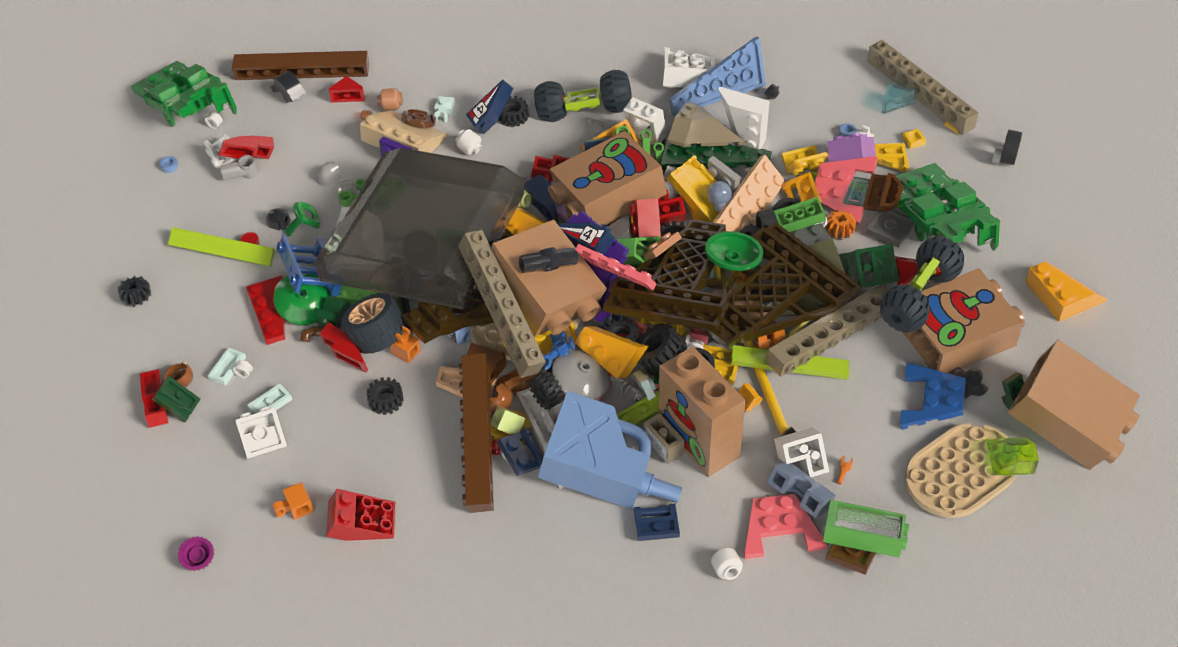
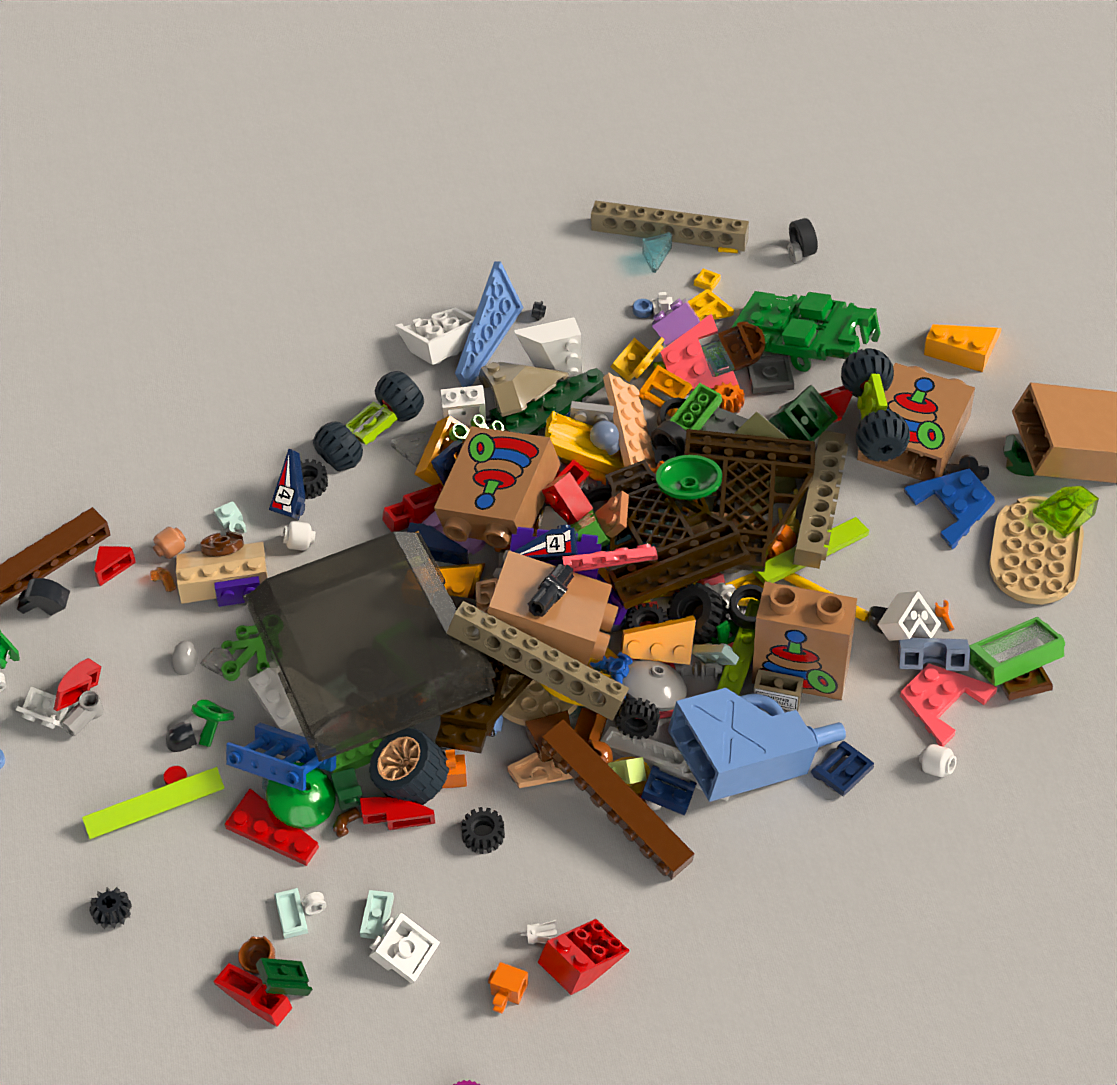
camera: 40 degrees left, 0 degrees up
(347, 481) = (537, 931): none -> white piece

